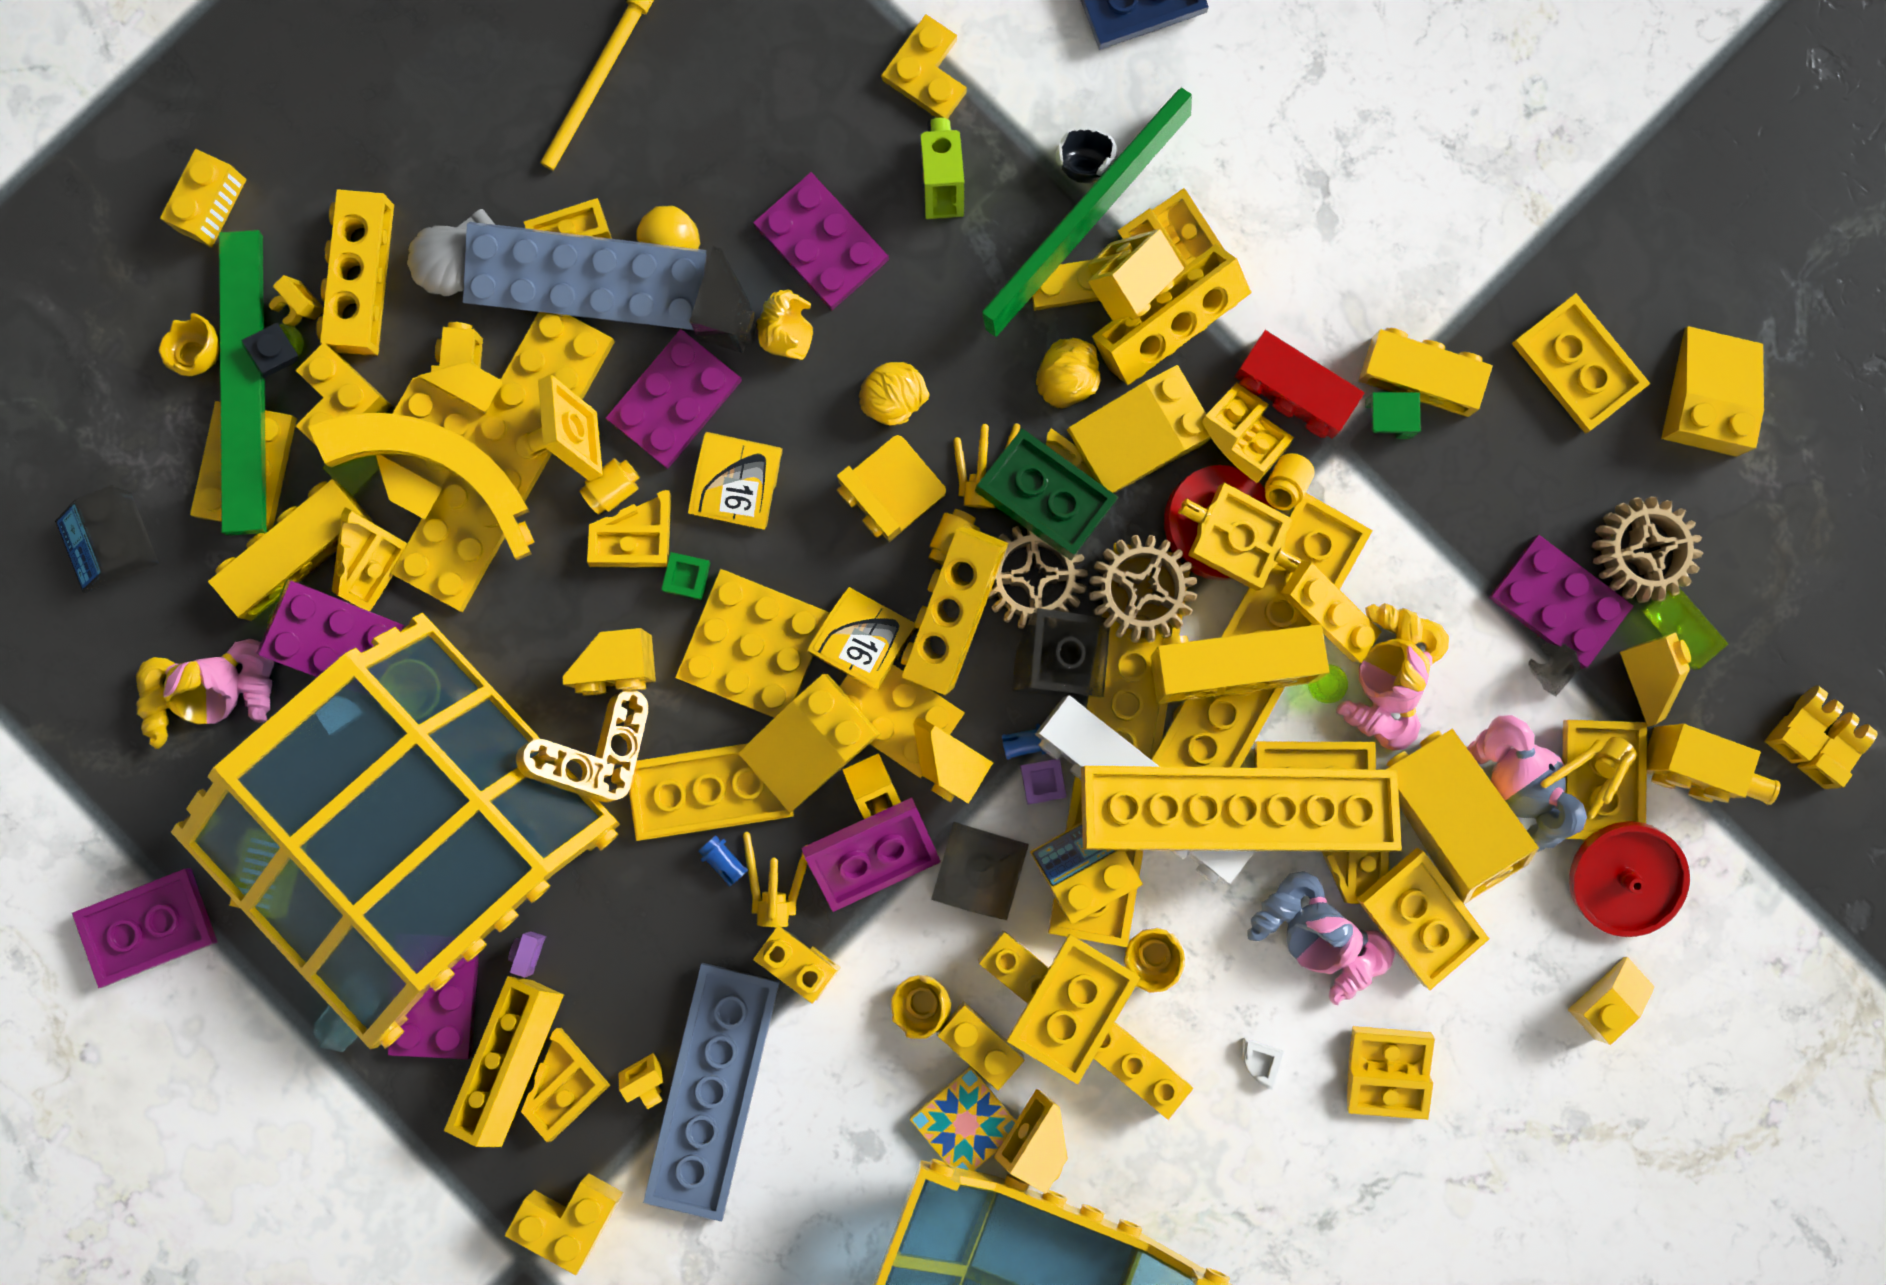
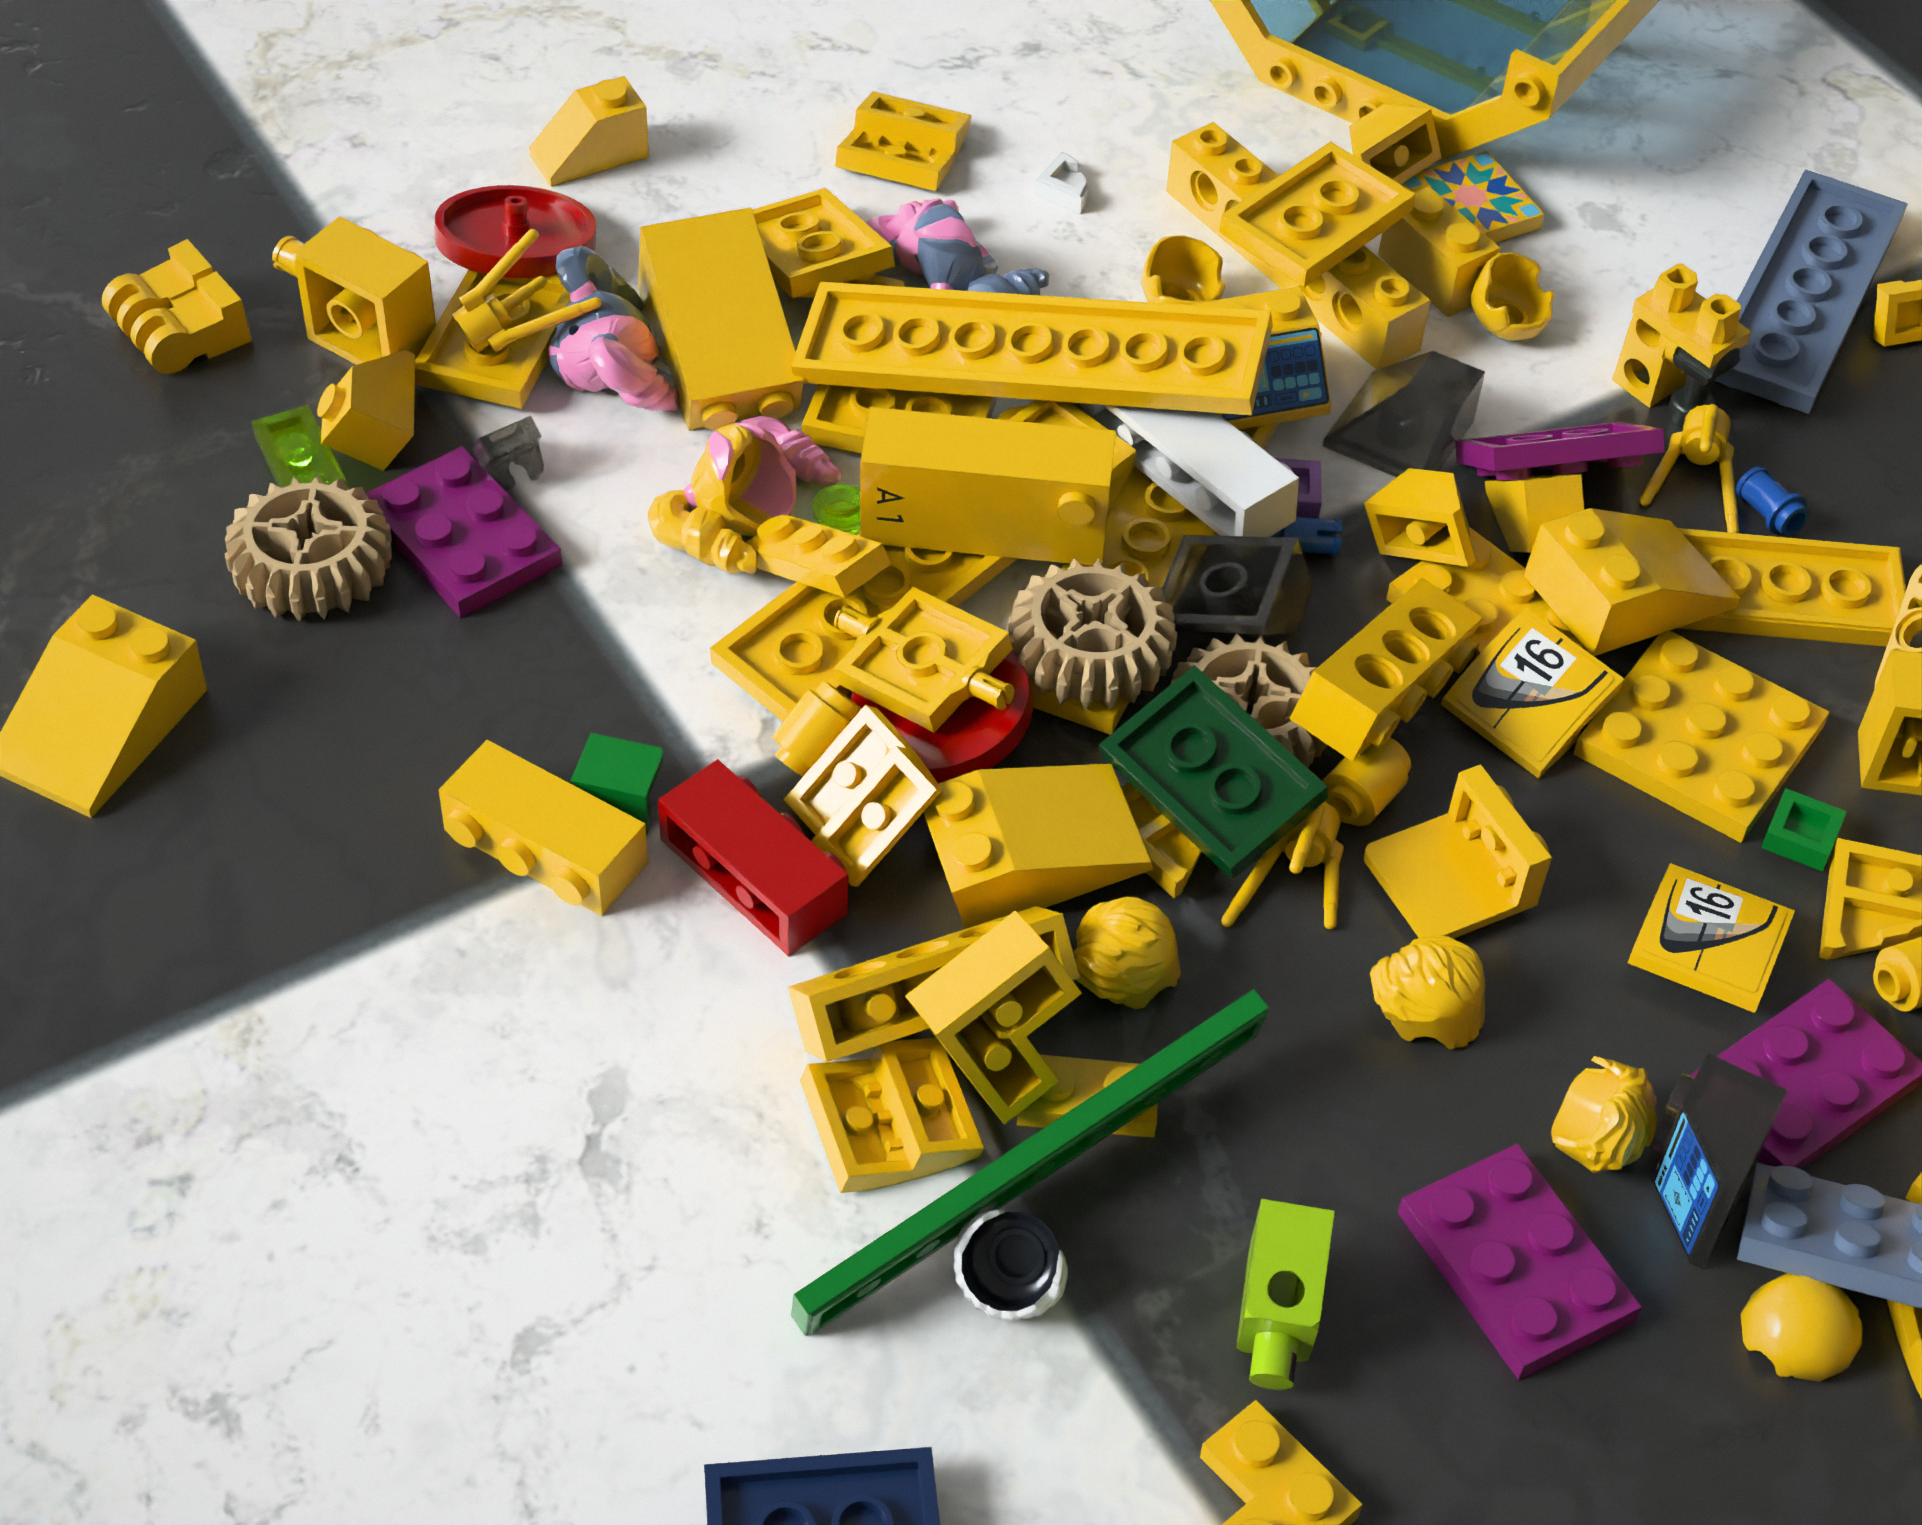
camera: 165 degrees left, 35 degrees down
(1581, 363) = (288, 792): yellow plate -> none

